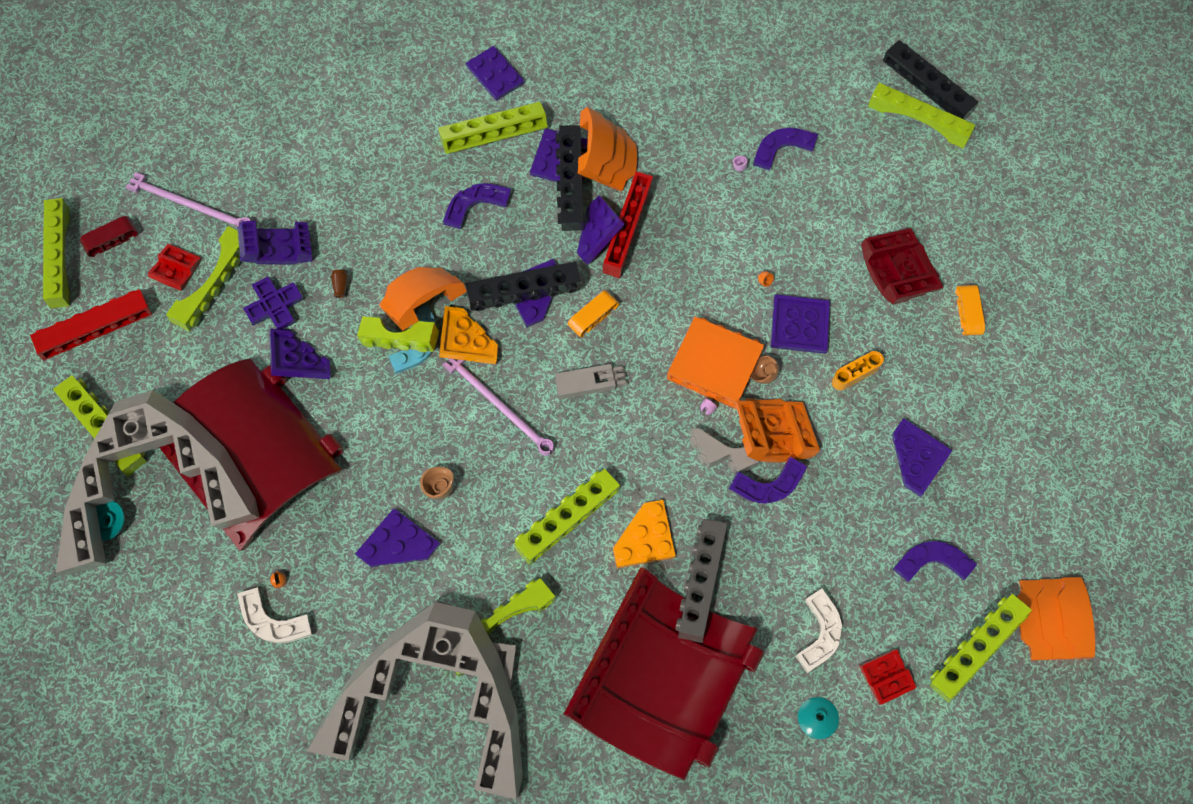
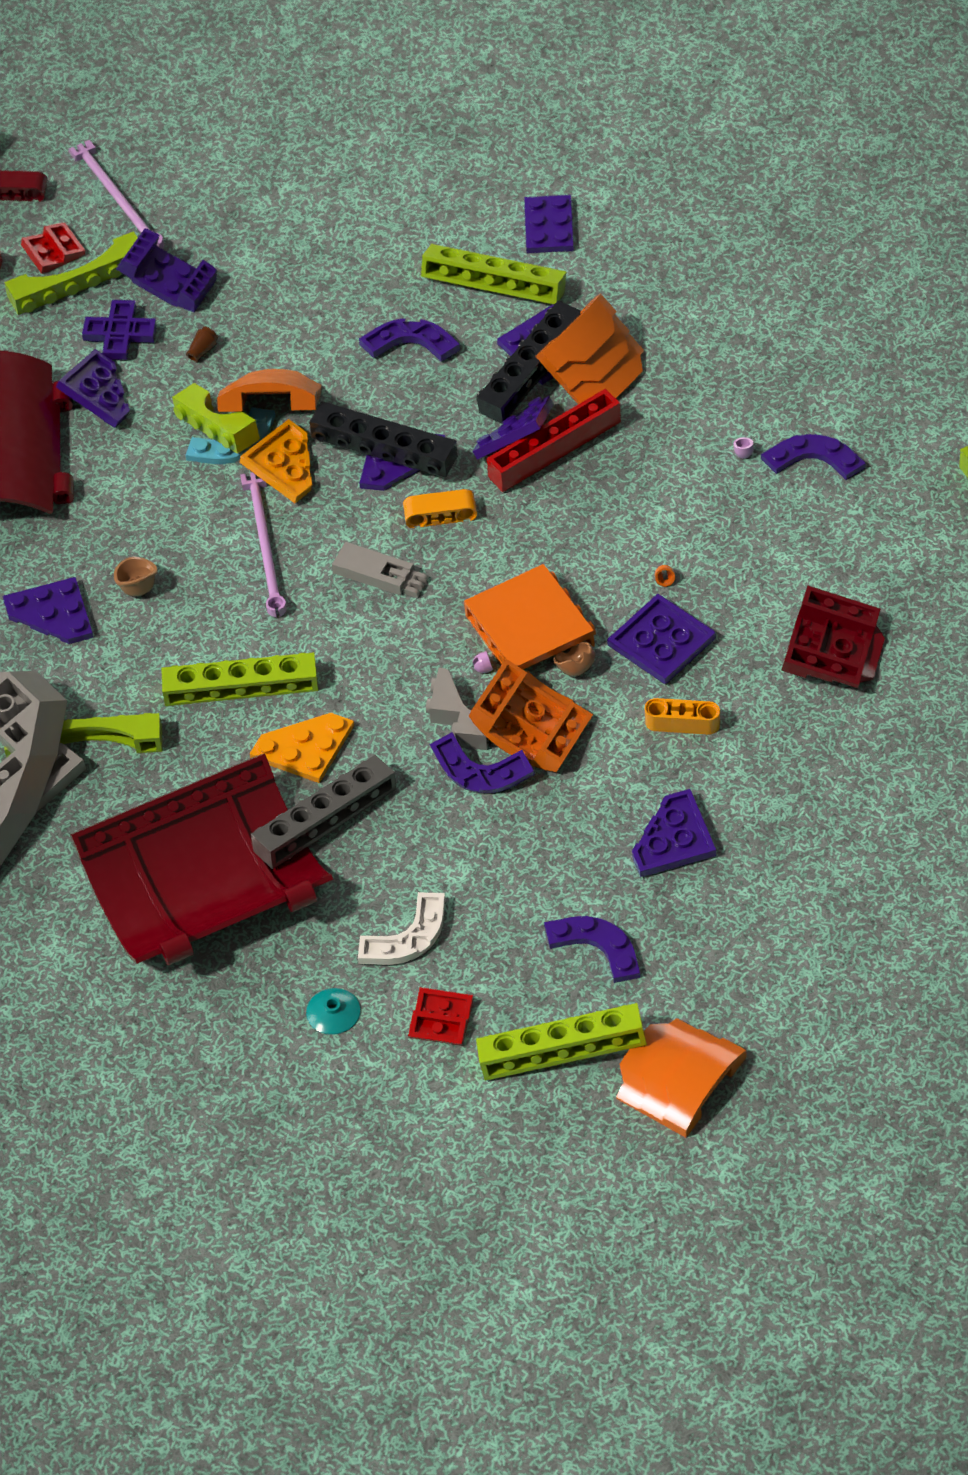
camera: 45 degrees right, 15 degrees down
(970, 310) = (875, 729): light orange beam -> none

